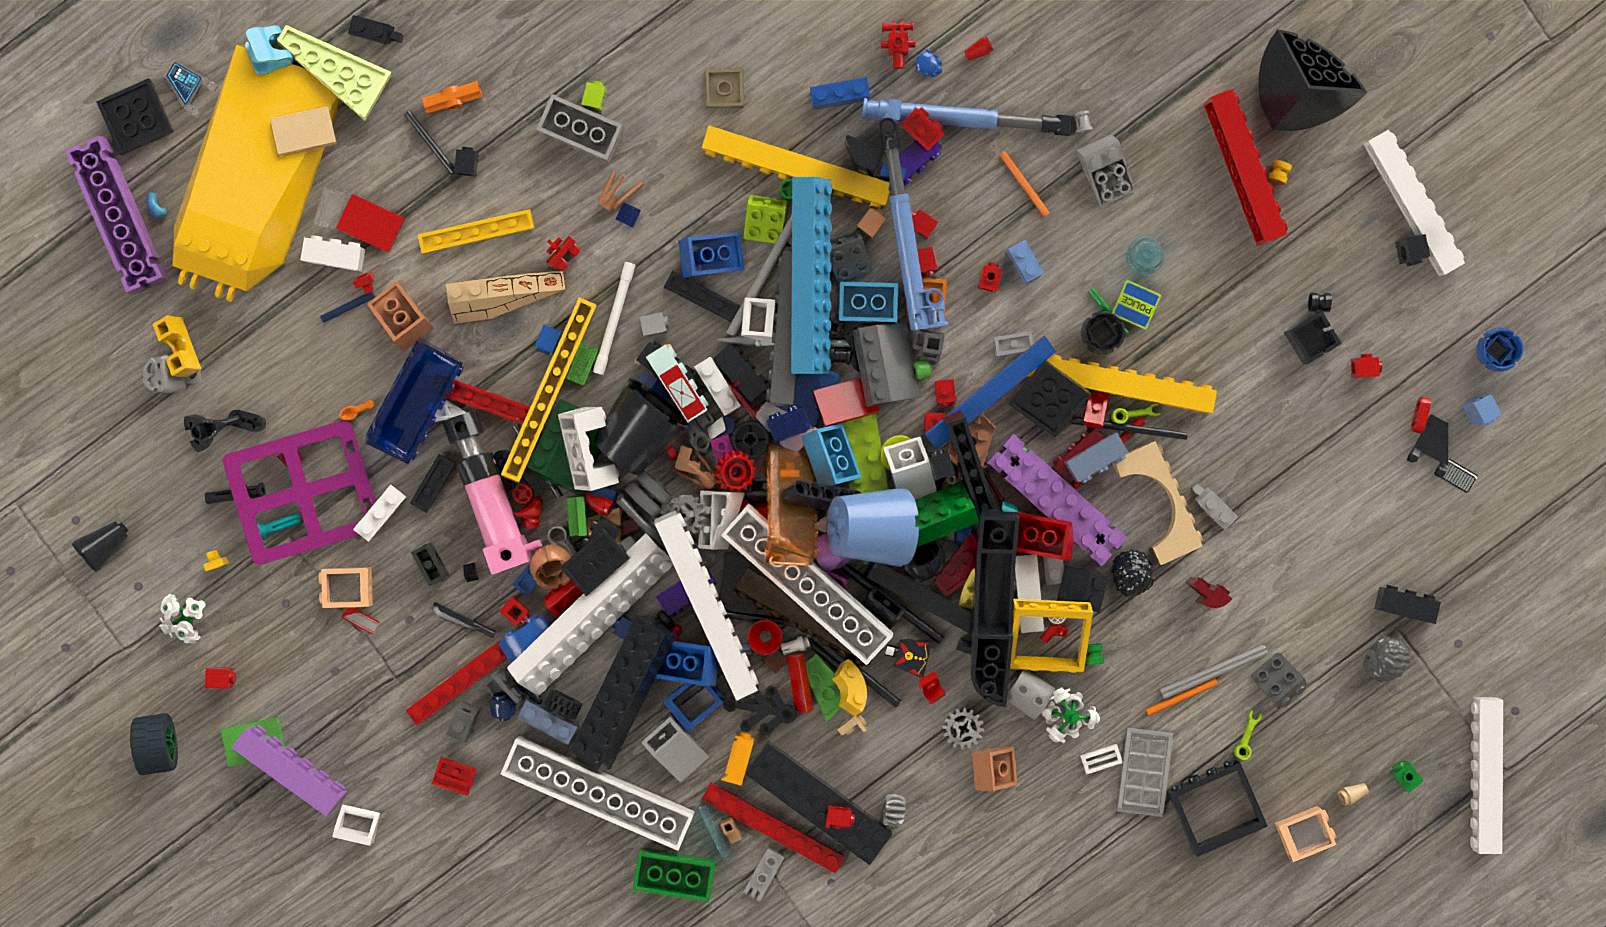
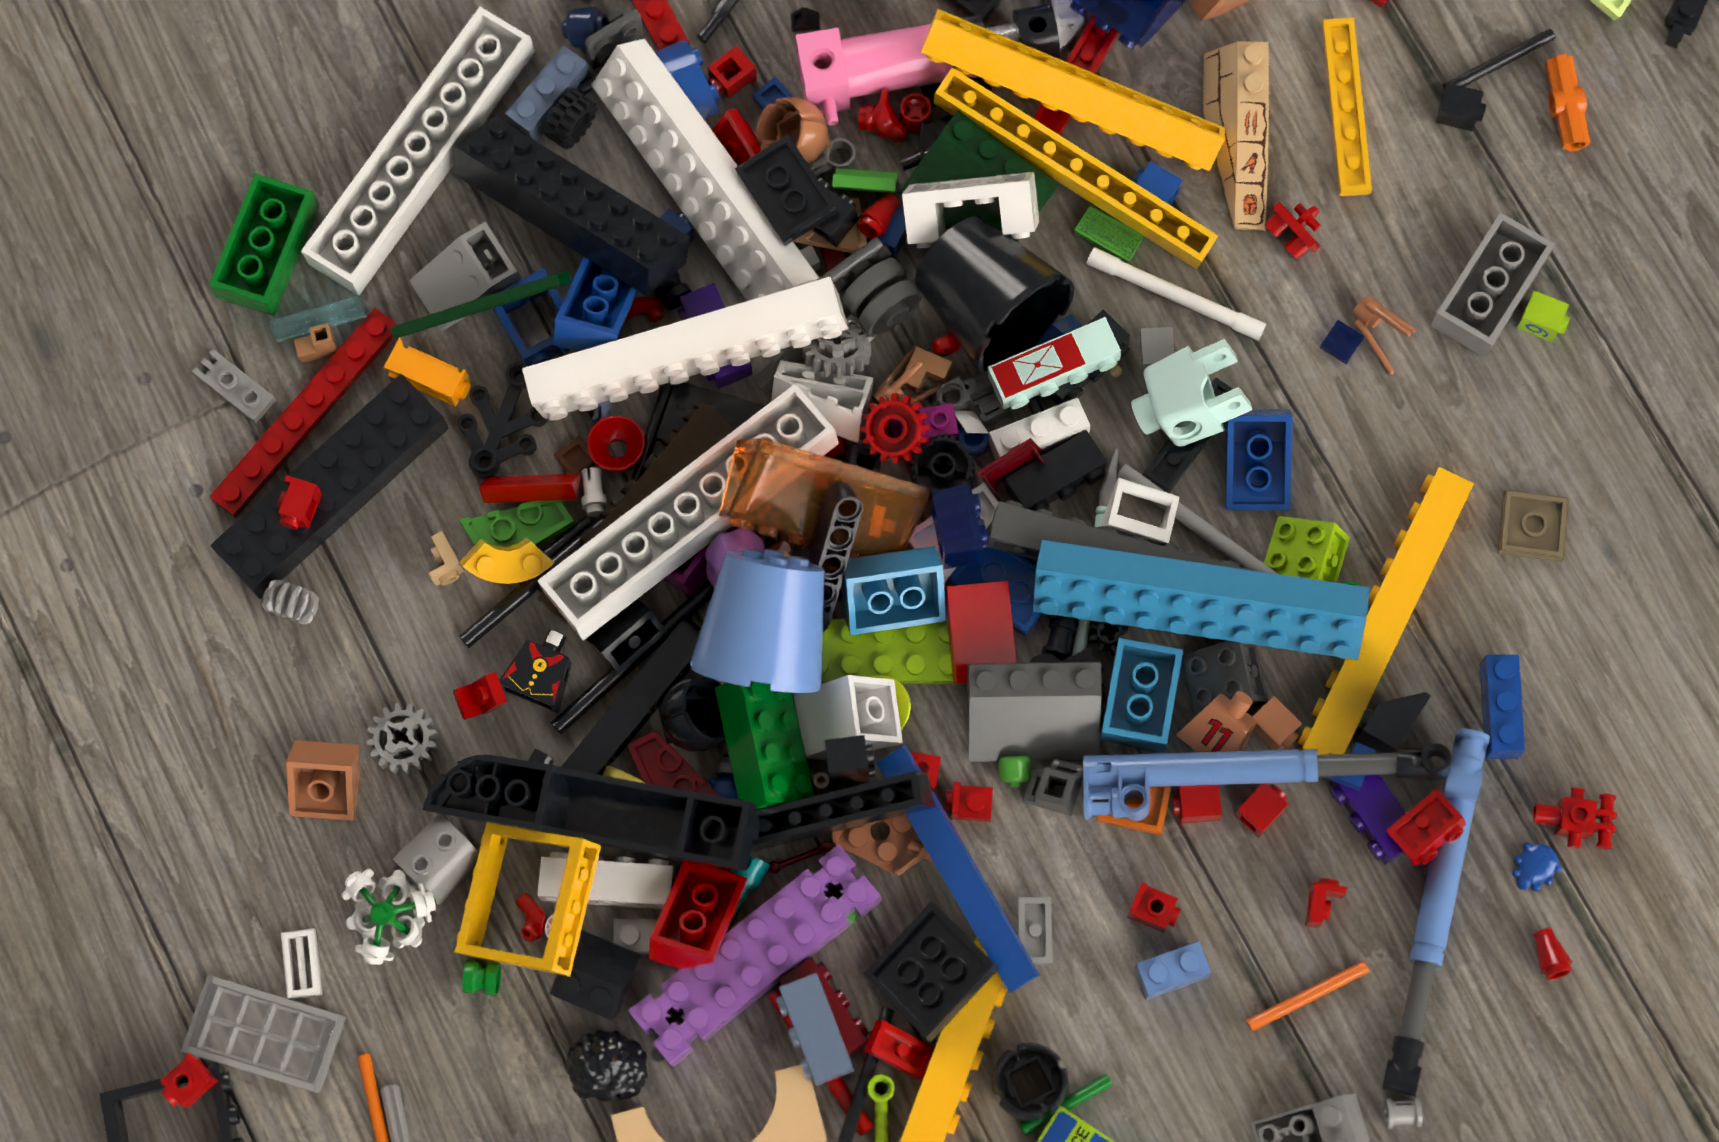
camera: 100 degrees right, 15 degrees down
(499, 399) = (1073, 90): none -> yellow brick
(684, 304) = (1183, 398): none -> light aqua piece
(695, 733) = (481, 304): none -> dark green tile
(880, 255) = (1220, 725): none -> nougat torso
(973, 184) = (1318, 907): none -> red bracket
(1178, 804) = (199, 1082): none -> red brick

